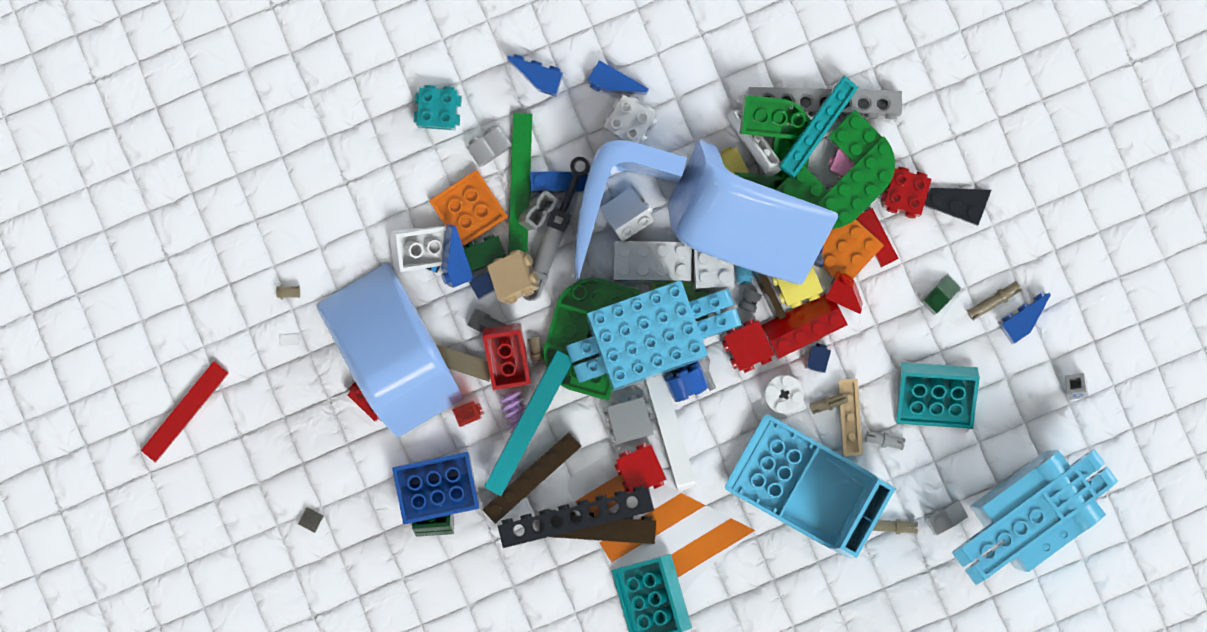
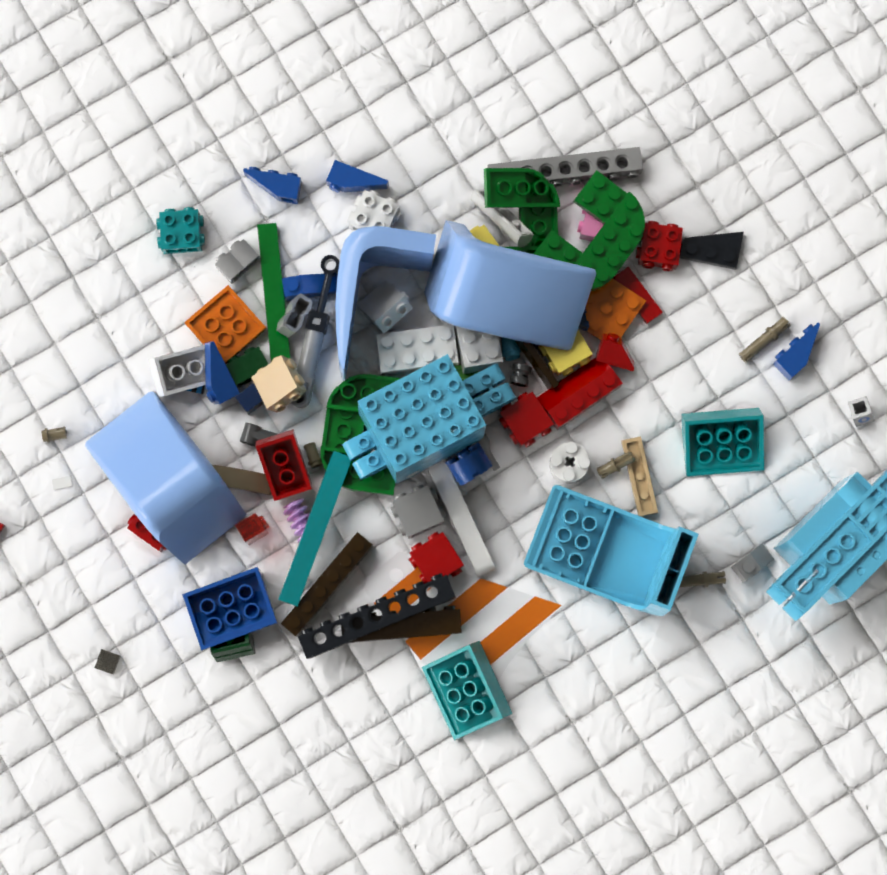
camera: 15 degrees left, 5 degrees down
(818, 126) = (562, 191): teal tile -> none
(818, 358) = (598, 422): dark blue brick -> none
(885, 440) = (678, 494): light grey pin -> none
(940, 294) = (710, 342): dark green slope -> none

